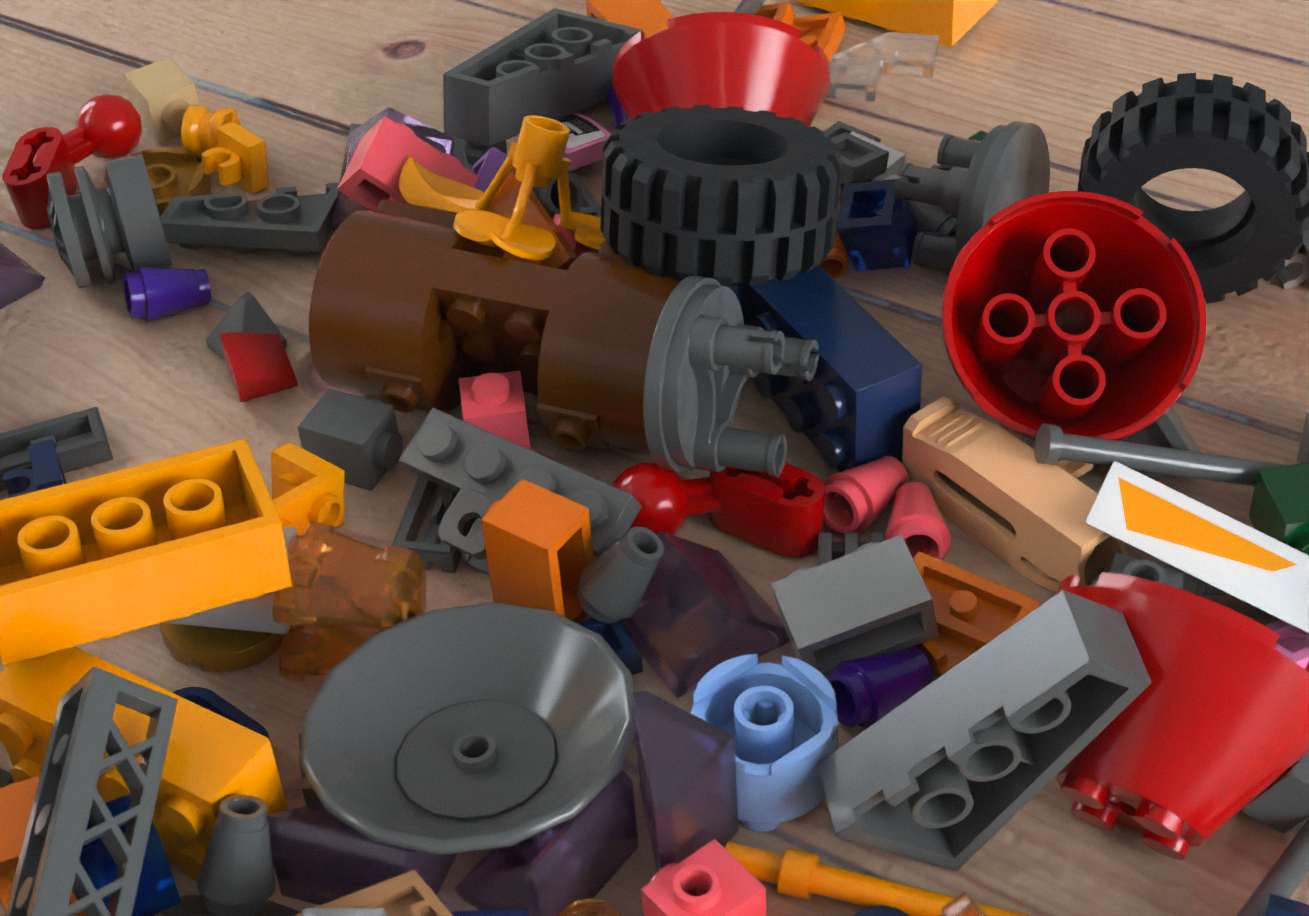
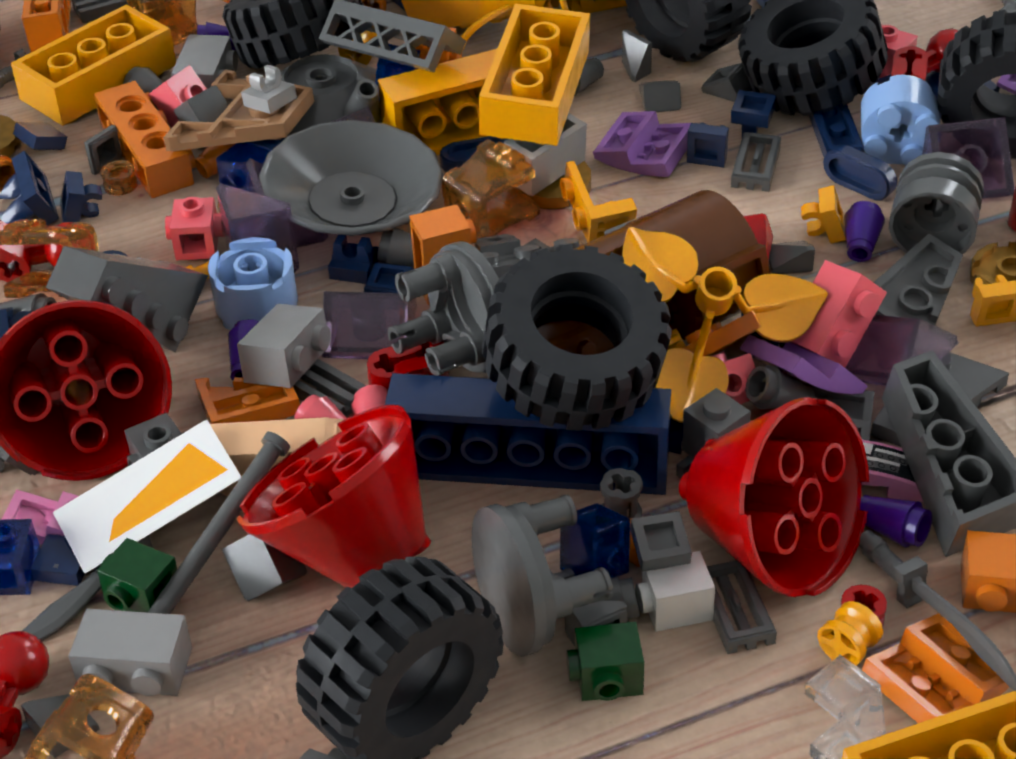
camera: 125 degrees right, 0 degrees up
(36, 335) = (860, 172): none -> dark blue tile
(154, 321) = (828, 215): none -> light orange tile
(619, 577) = (390, 263): dark grey cone -> none

